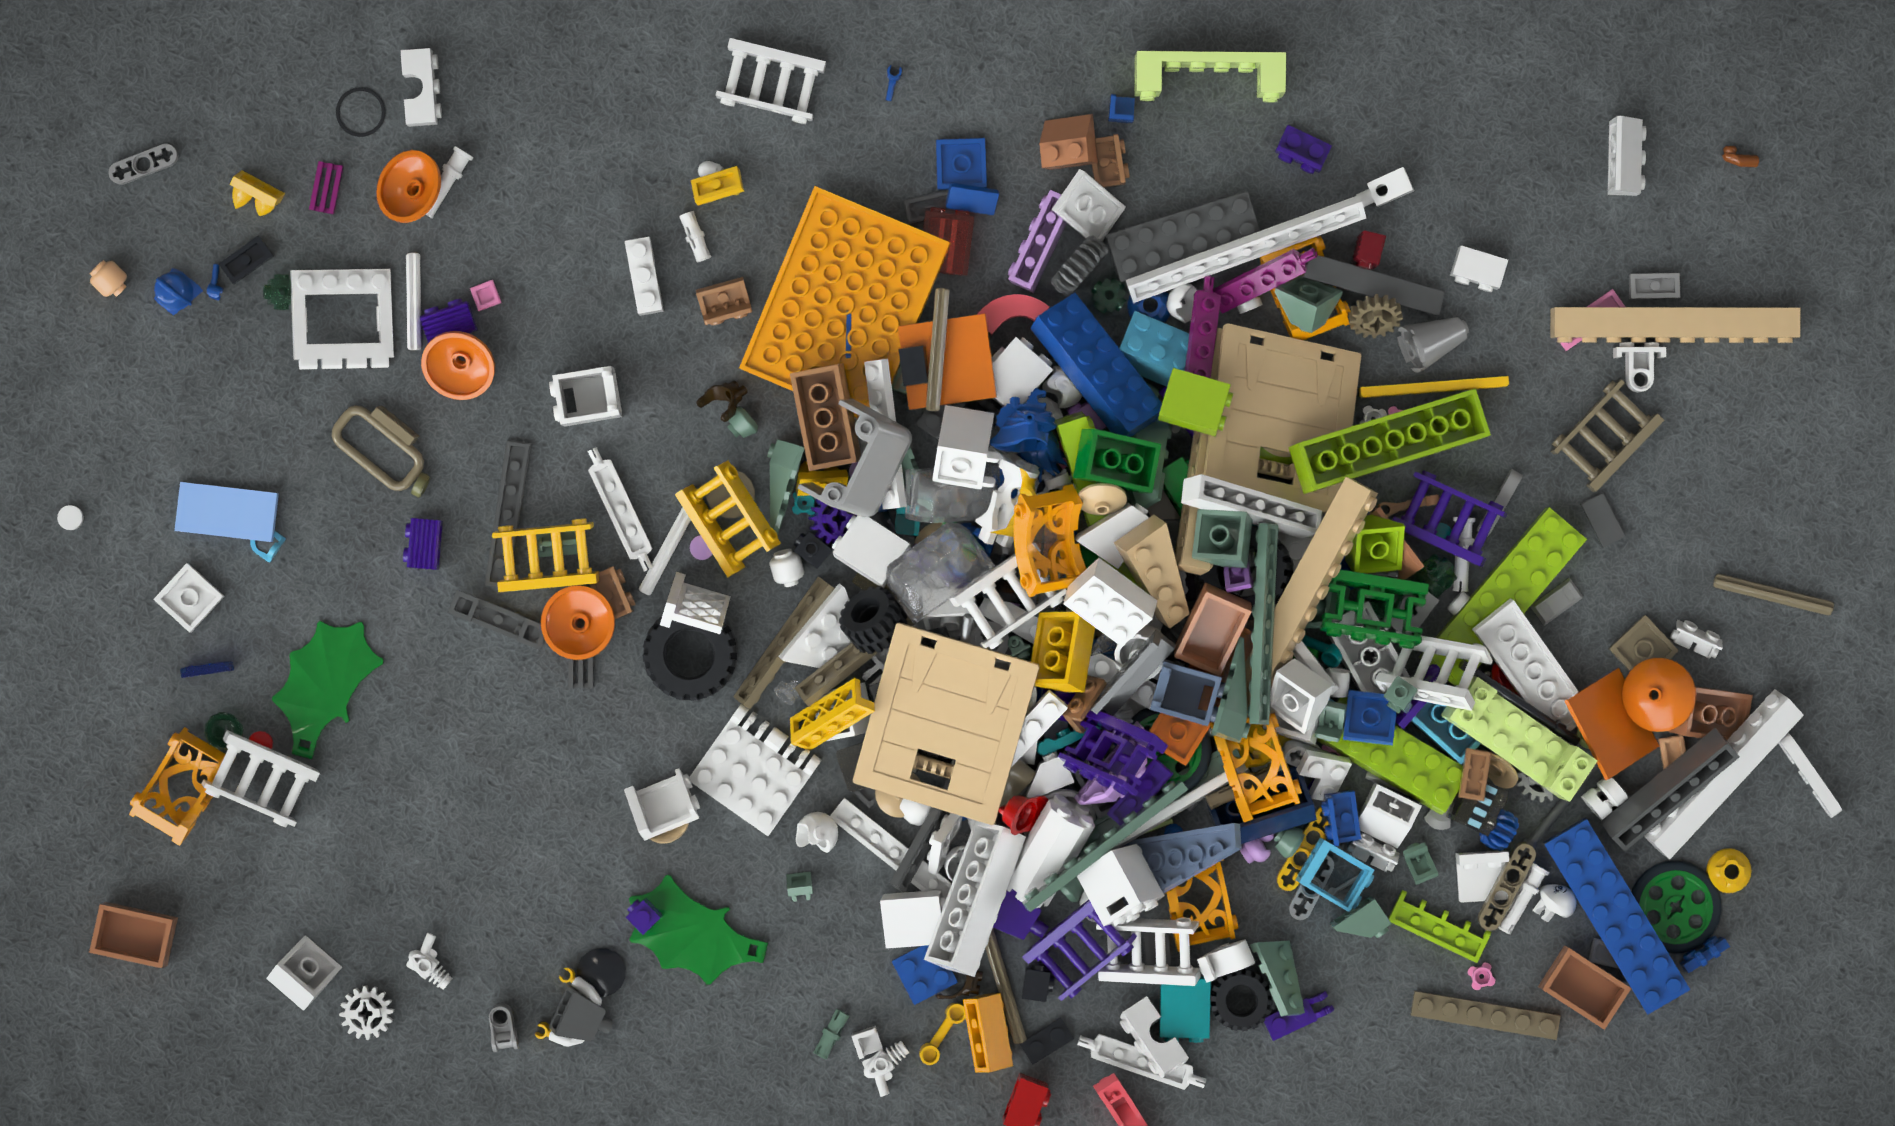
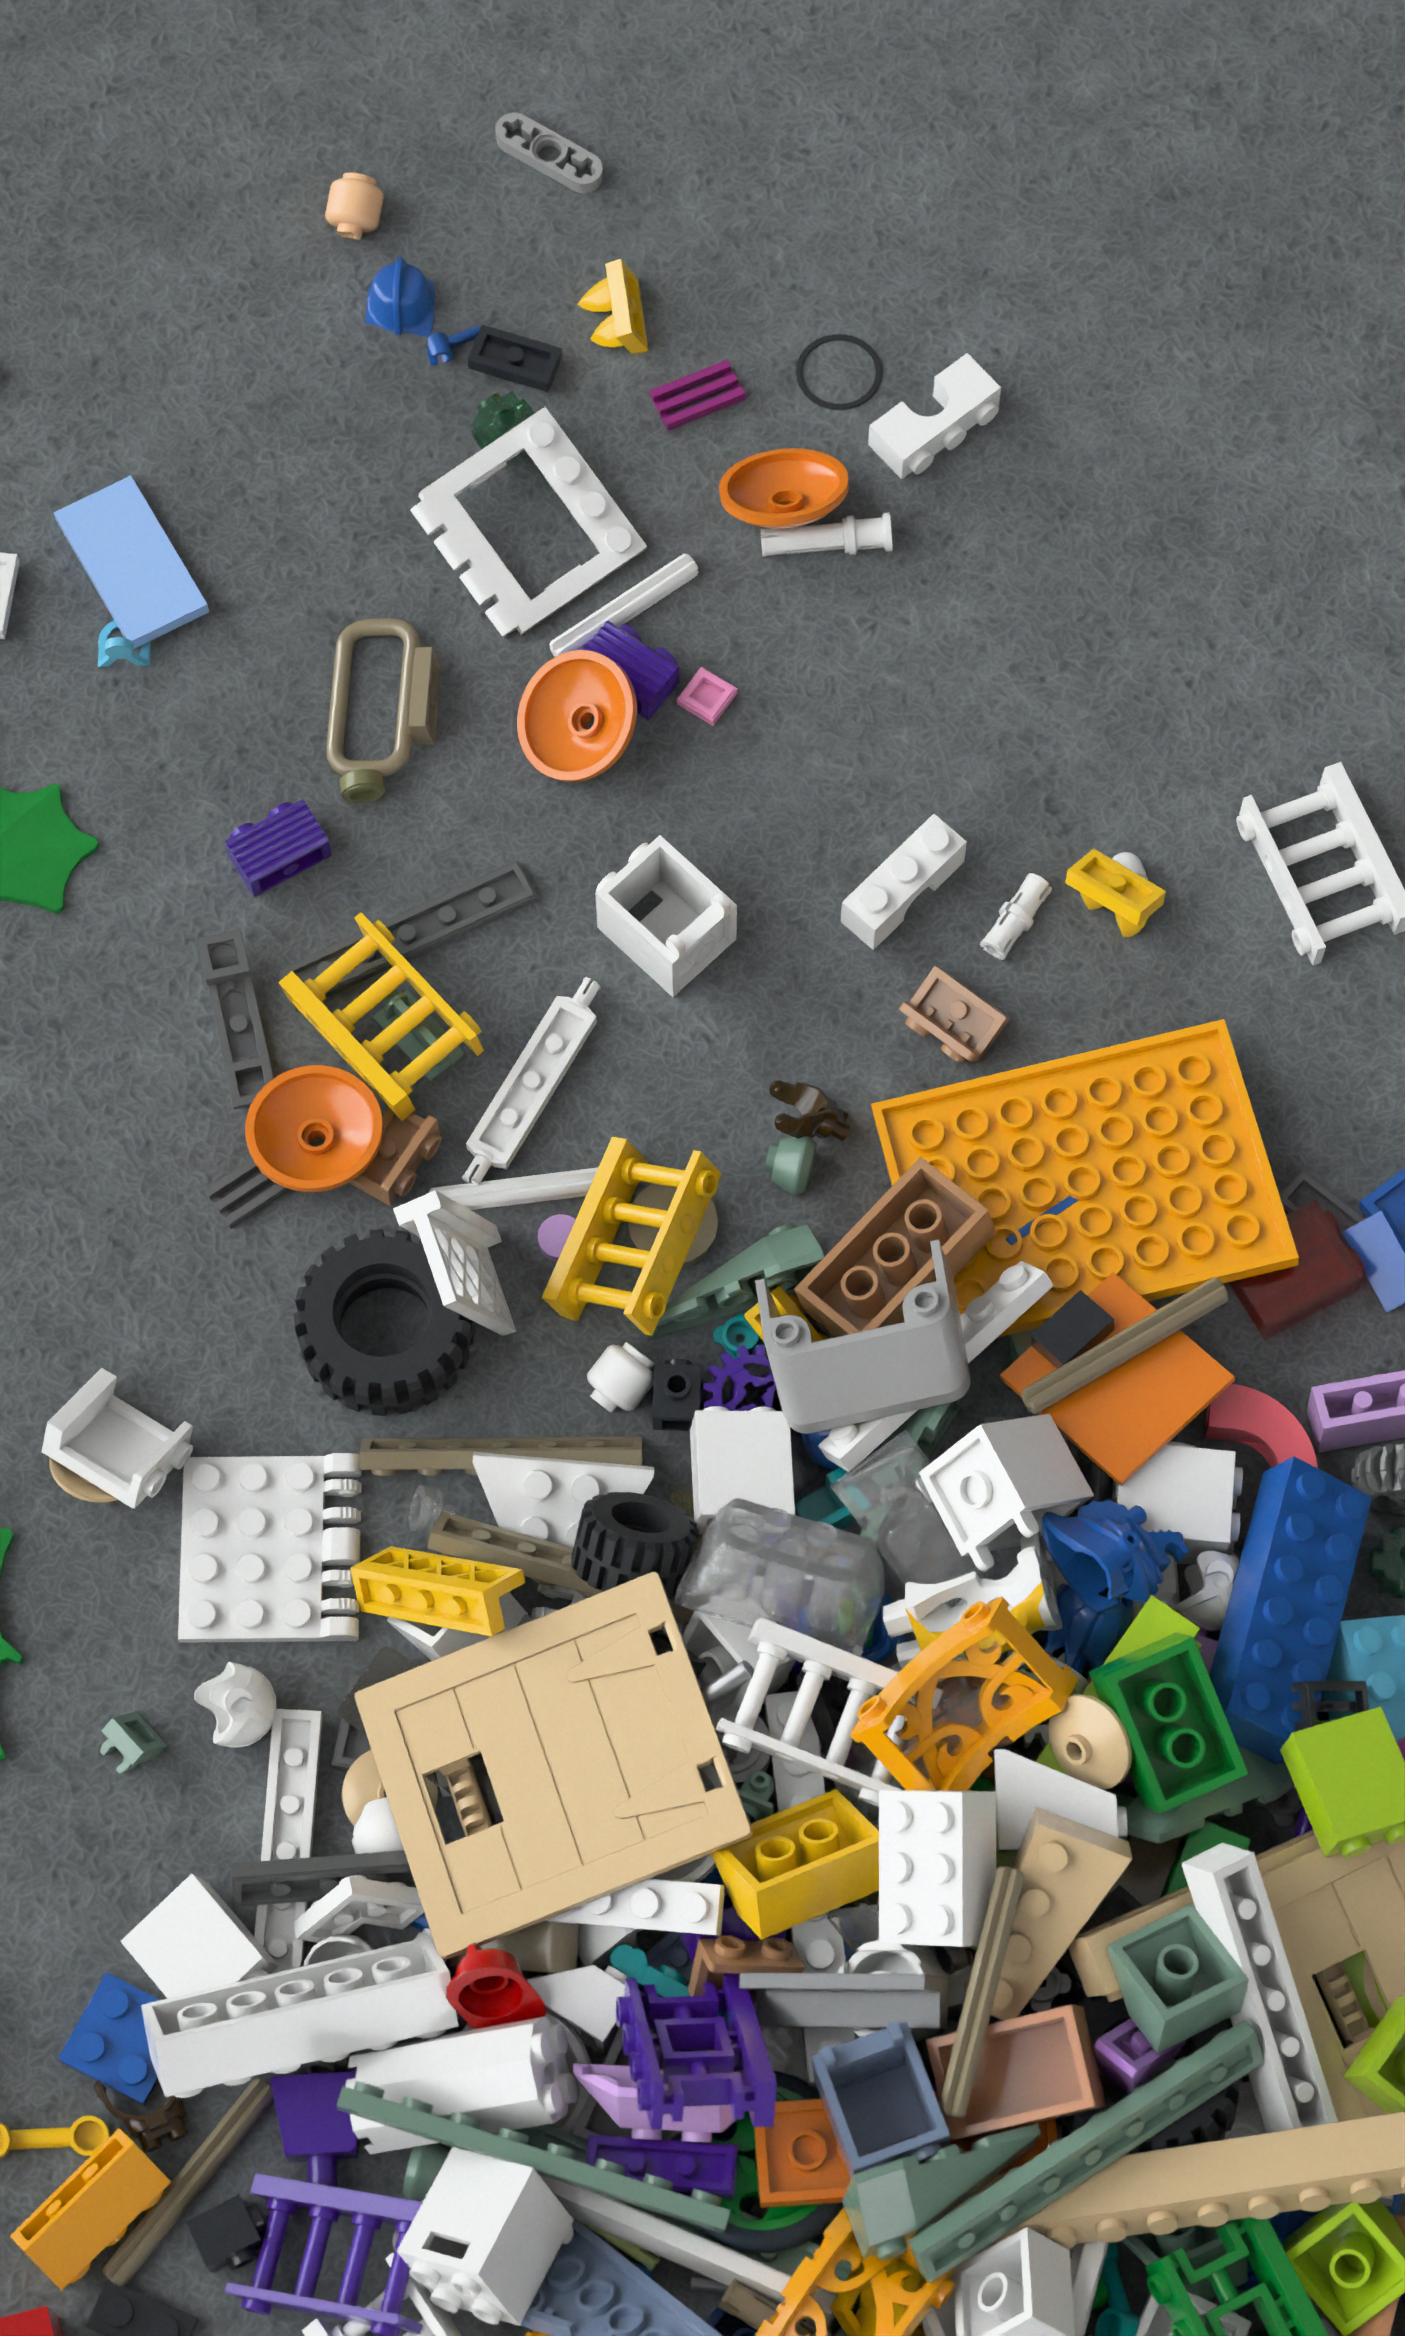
camera: 60 degrees right, 20 degrees down
(1148, 395) = (1308, 1706): none -> black tile
(1174, 622) = (981, 1992): none -> dark tan axle

